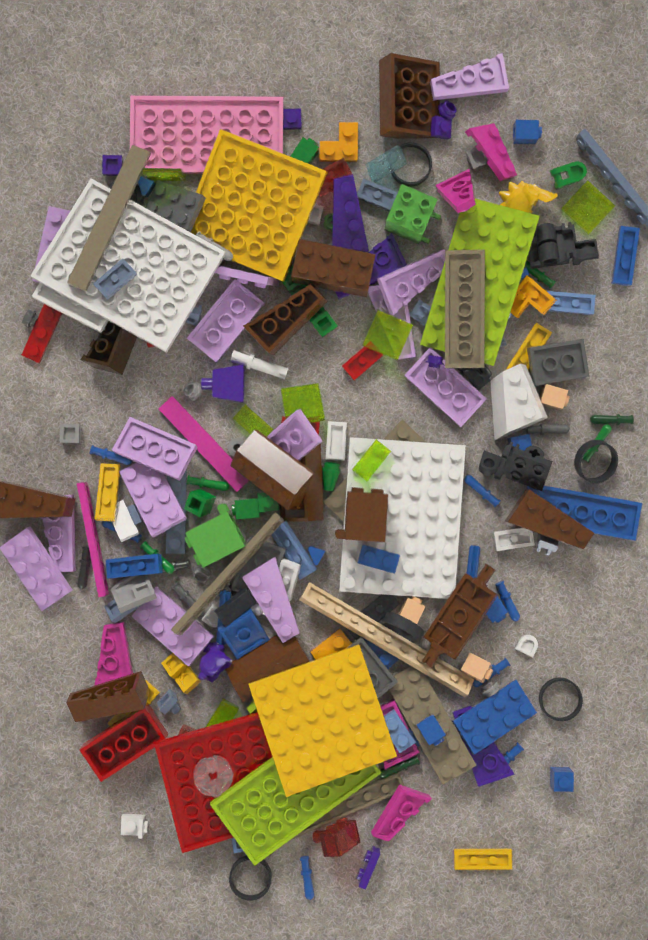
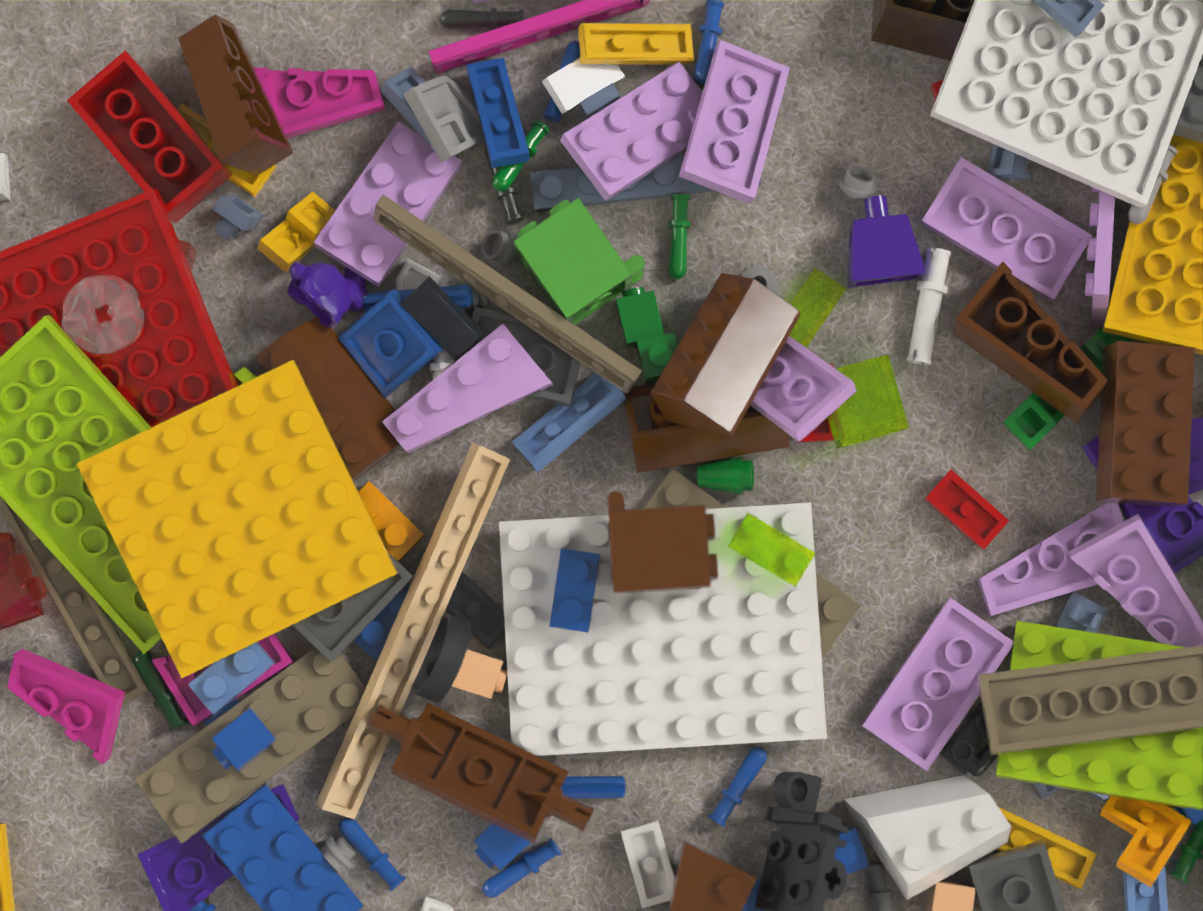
camera: 80 degrees right, 5 degrees down
(184, 595) = (451, 219): dark grey piece -> none
(200, 502) = (639, 224): green brick -> none
(206, 444) = (760, 217): dark pink tile -> none
(224, 712) = (231, 326): clear neon green tile -> none
(289, 572) = (520, 419): white plate -> none
(316, 554) = (566, 466): blue slope -> none
(336, 441) = (798, 479): white tile -> none
(387, 335) = (1026, 552): clear neon green tile -> none
(434, 361) = (988, 654): dark purple plate -> none
(477, 668) = (377, 821): light nougat brick -> none

